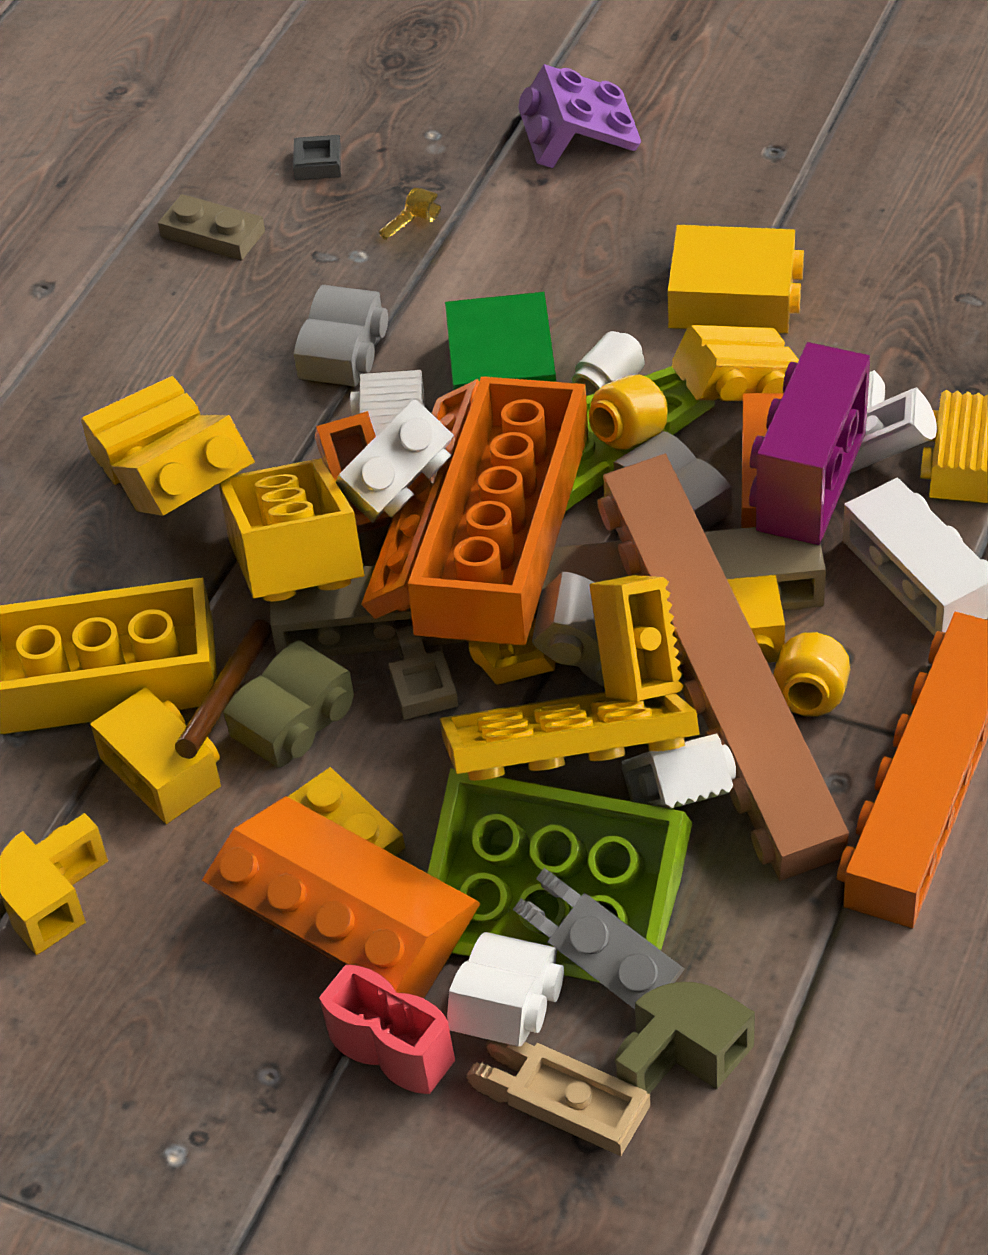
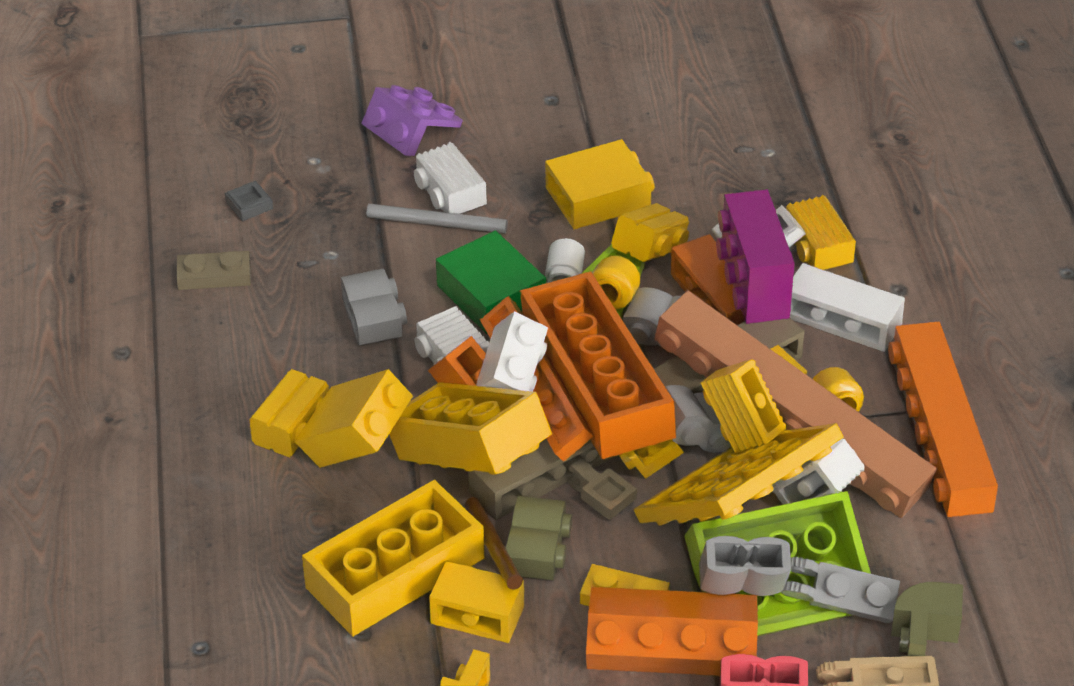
camera: 35 degrees left, 5 degrees down
(419, 204) = (351, 206): clear yellow hand -> none
(456, 852) = (737, 565): none -> light grey brick
(504, 989) = (812, 635): white brick -> none
(512, 255) = (437, 218): none -> light grey bar
(555, 211) = (450, 180): none -> white brick

